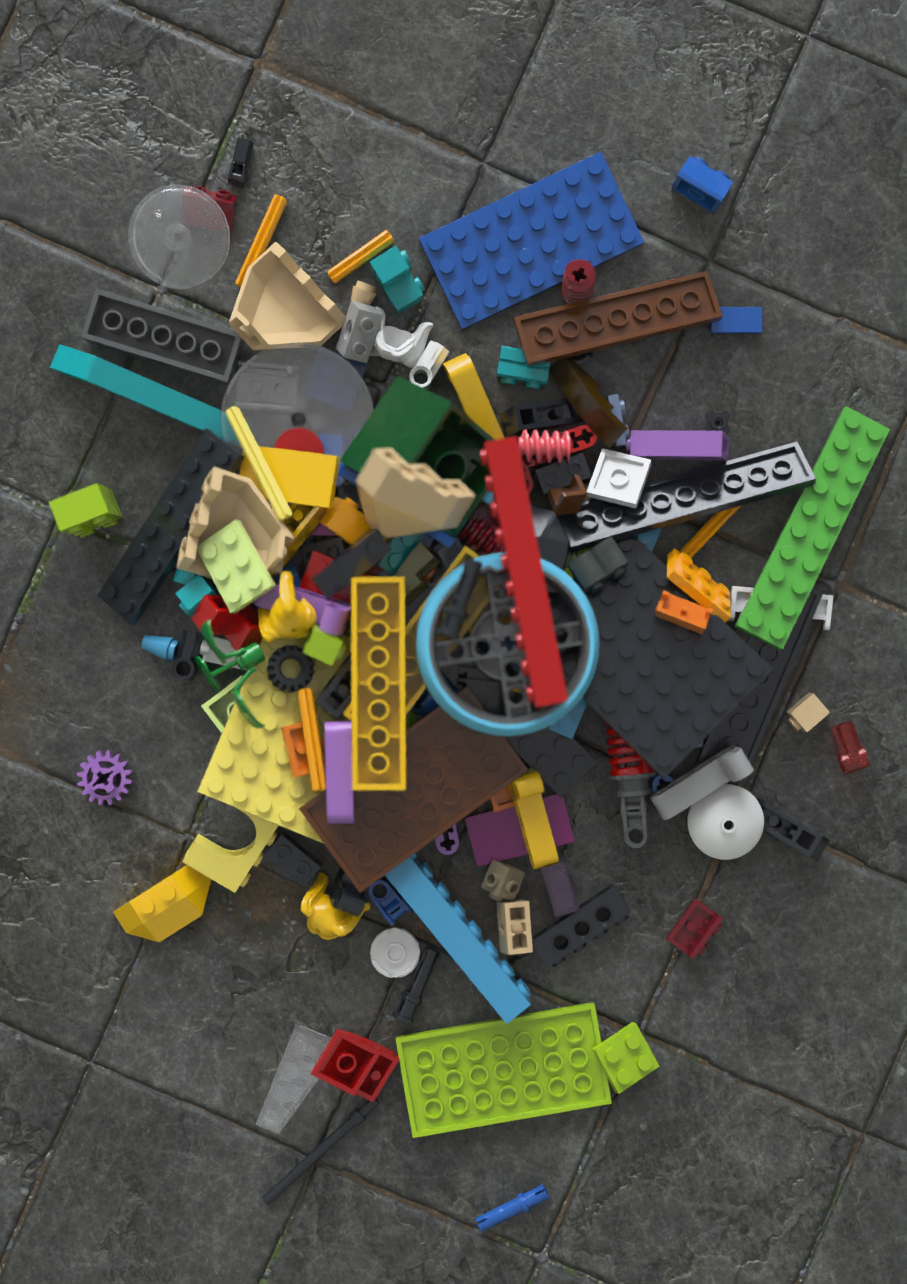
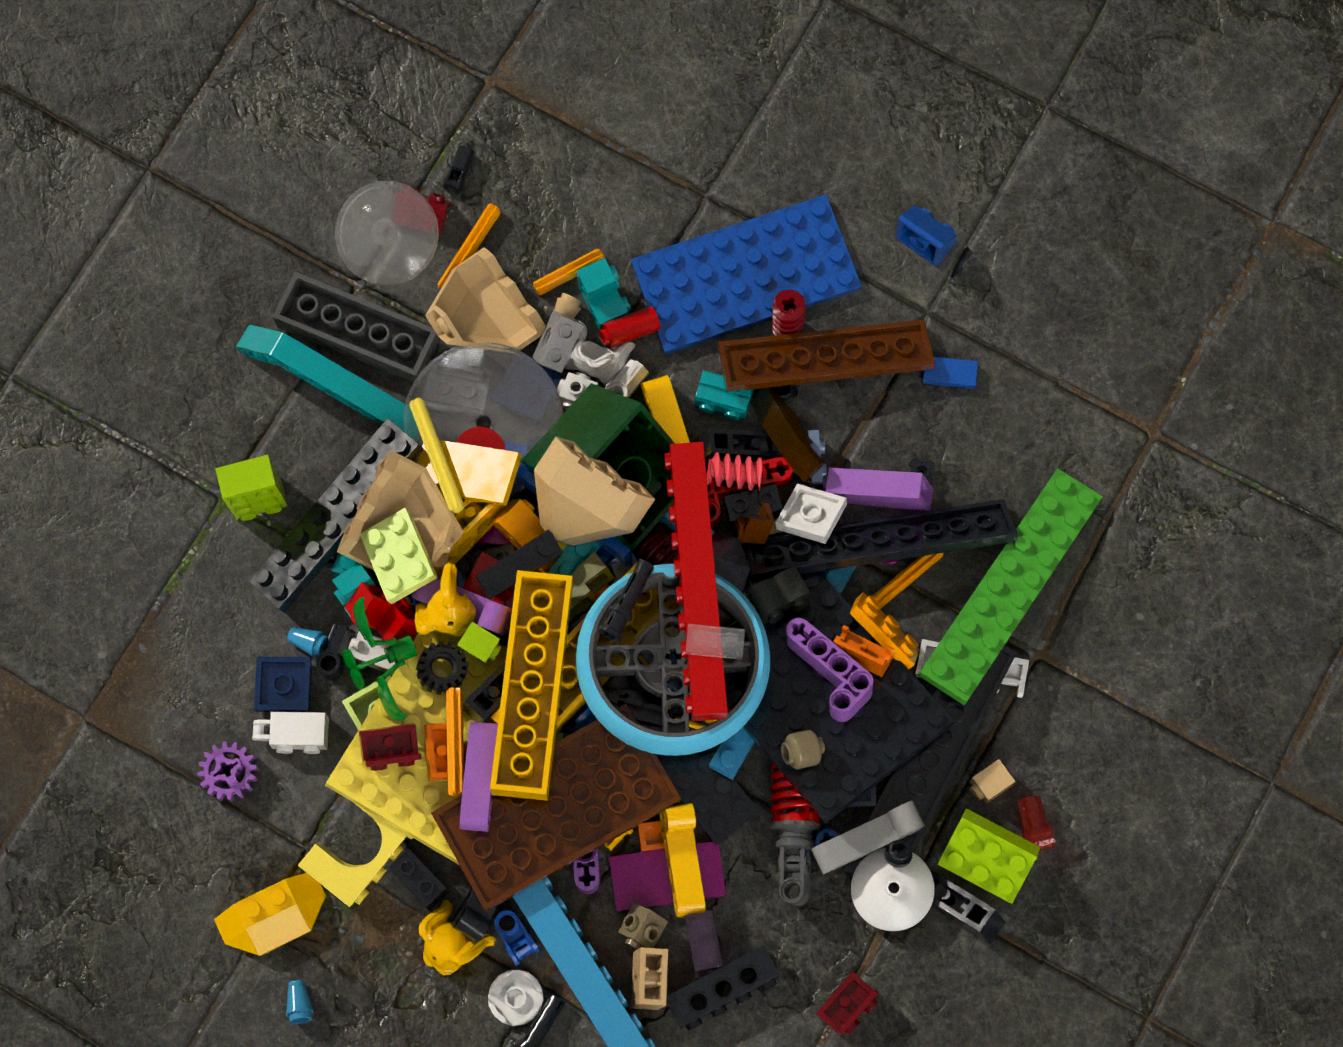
camera: 10 degrees right, 15 degrees down
(143, 690) = (283, 684): none -> dark blue plate
(161, 734) = (294, 731): none -> white brick
(200, 979) = (298, 1003): none -> dark azure cone
(252, 752) = (389, 746): none -> dark red bracket
(383, 369) = (572, 388): none -> white brick
(426, 308) = (630, 327): none -> red brick
(549, 634) = (715, 641): none -> clear plate
(637, 716) = (802, 749): none -> dark tan head
(648, 630) = (824, 665): none -> medium lavender beam
(730, 794) = (898, 854): none -> black plate
(811, 783) = (989, 856): none -> lime brick

